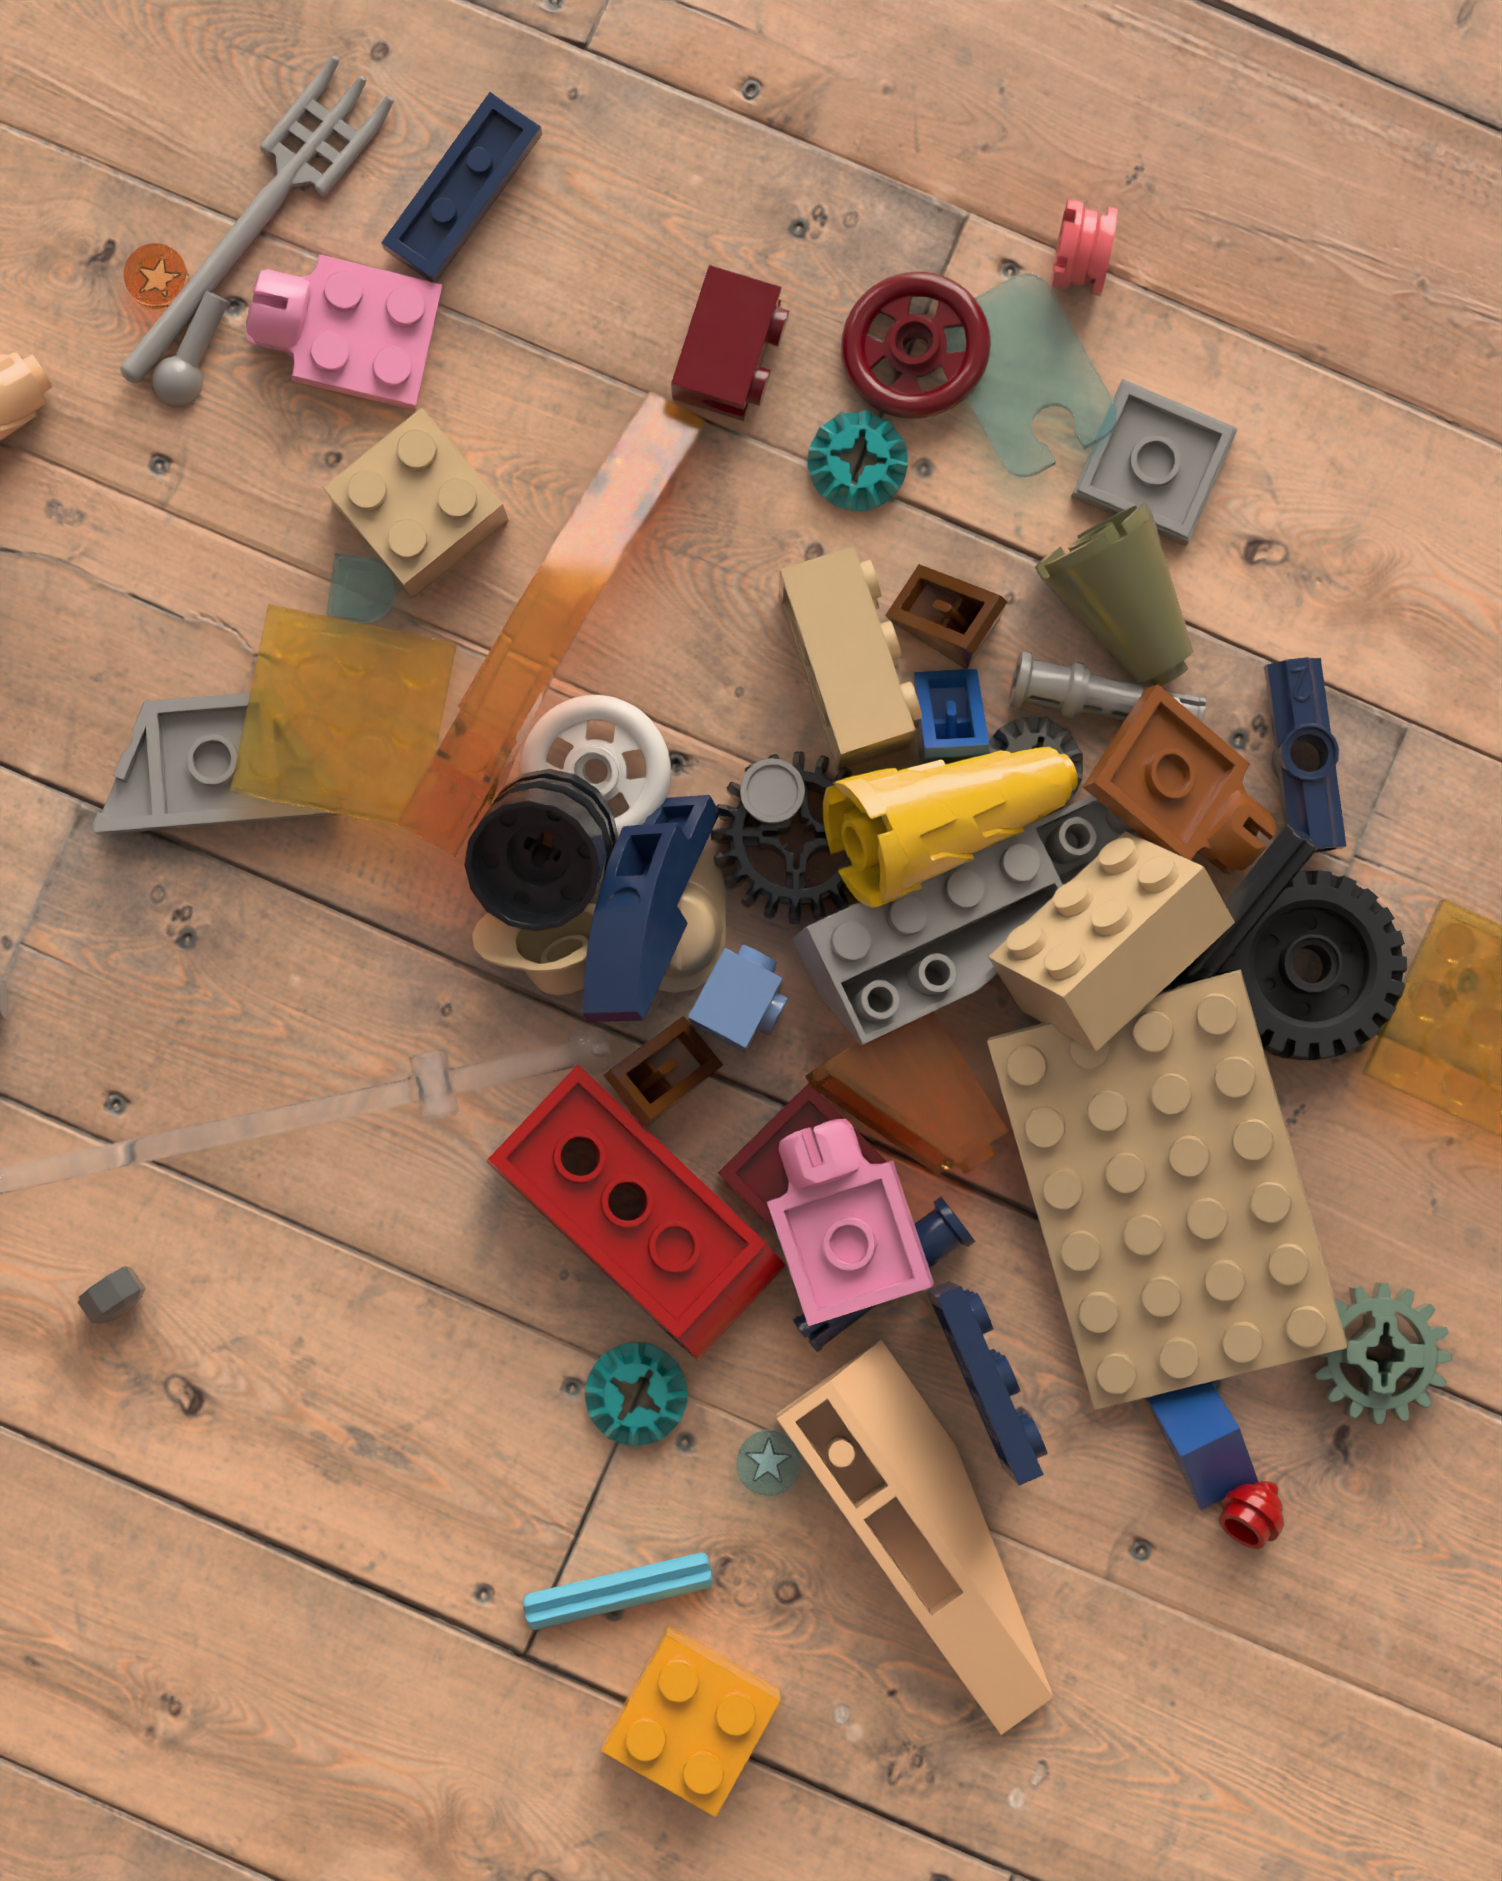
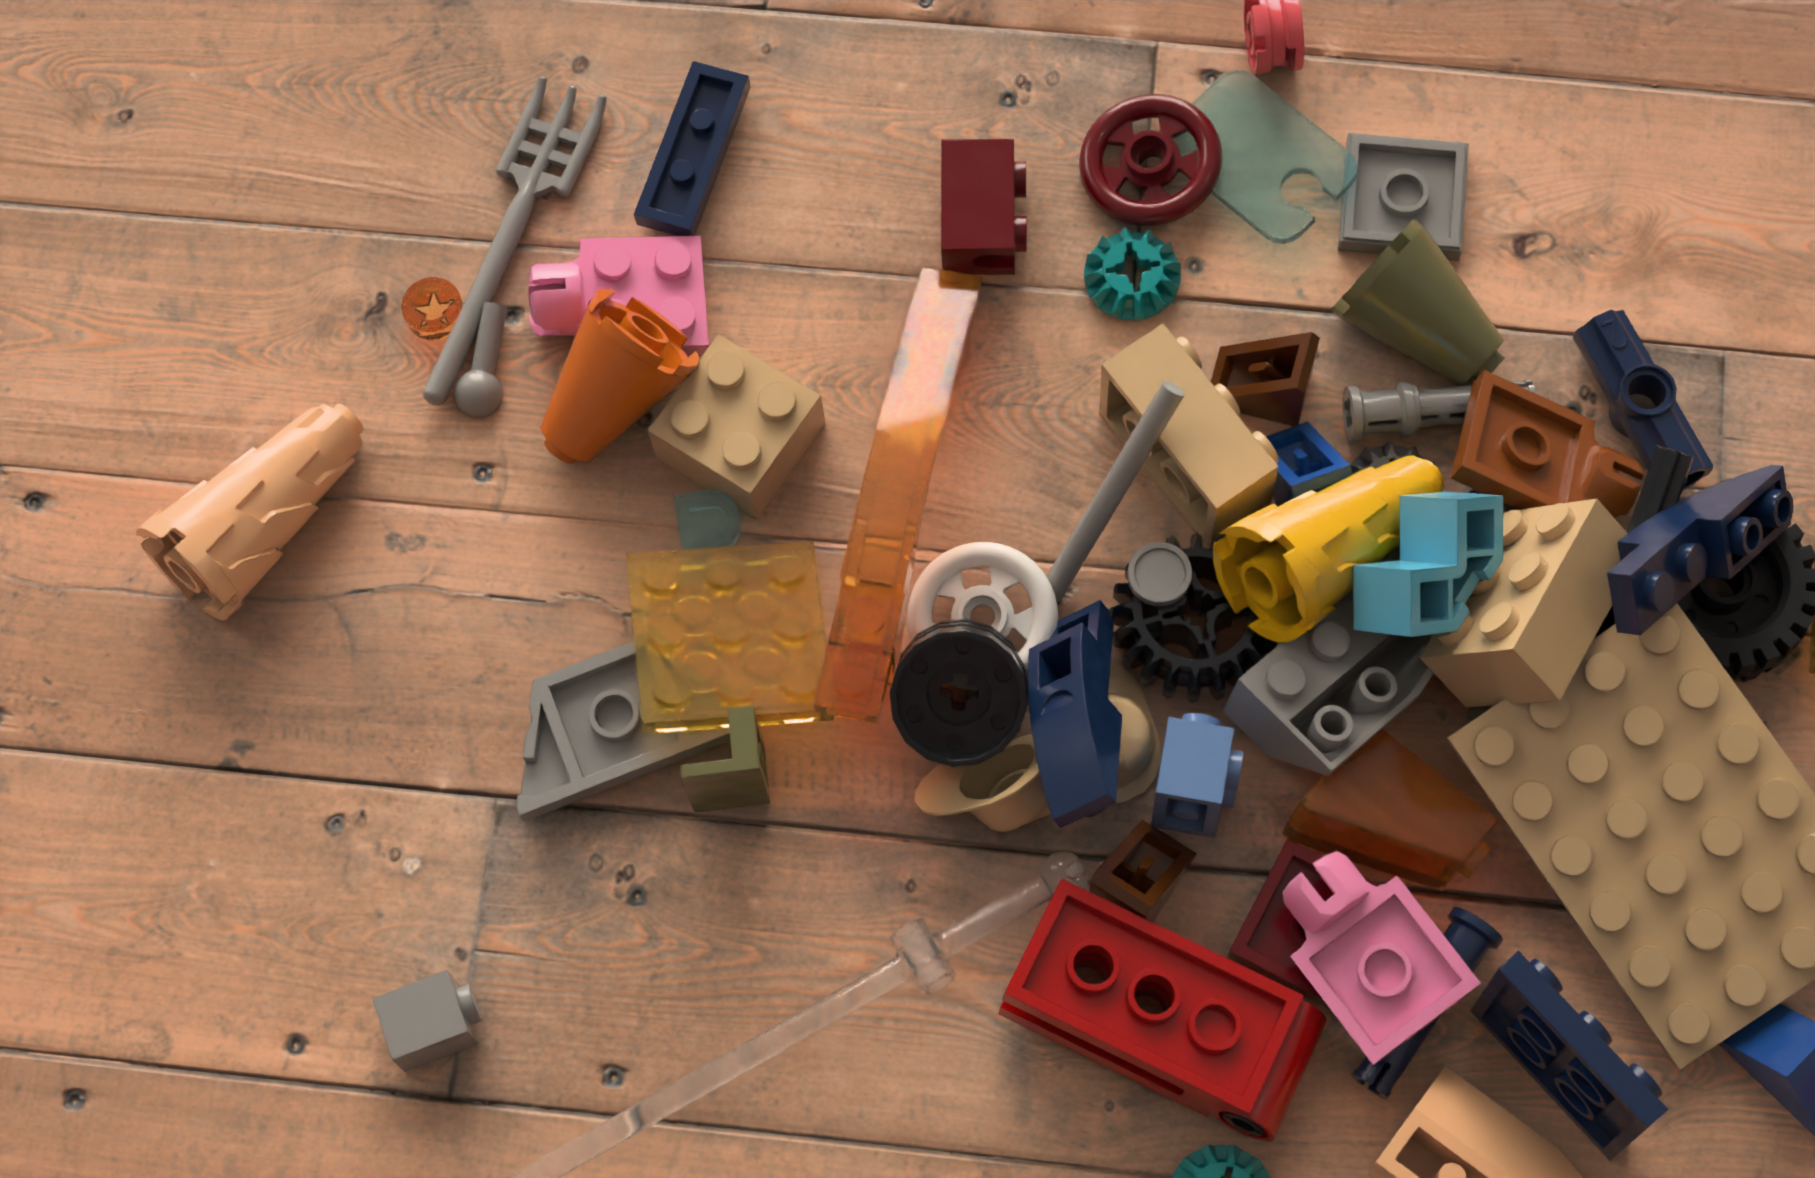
camera: 10 degrees left, 15 degrees down
(310, 414) = (613, 376): none -> orange cone
(320, 856) = (735, 780): none -> olive panel
(755, 693) = (1114, 487): none -> light grey bar
(1048, 861) = (1444, 553): none -> medium azure brick
(1287, 927) = (1696, 539): none -> dark blue slope

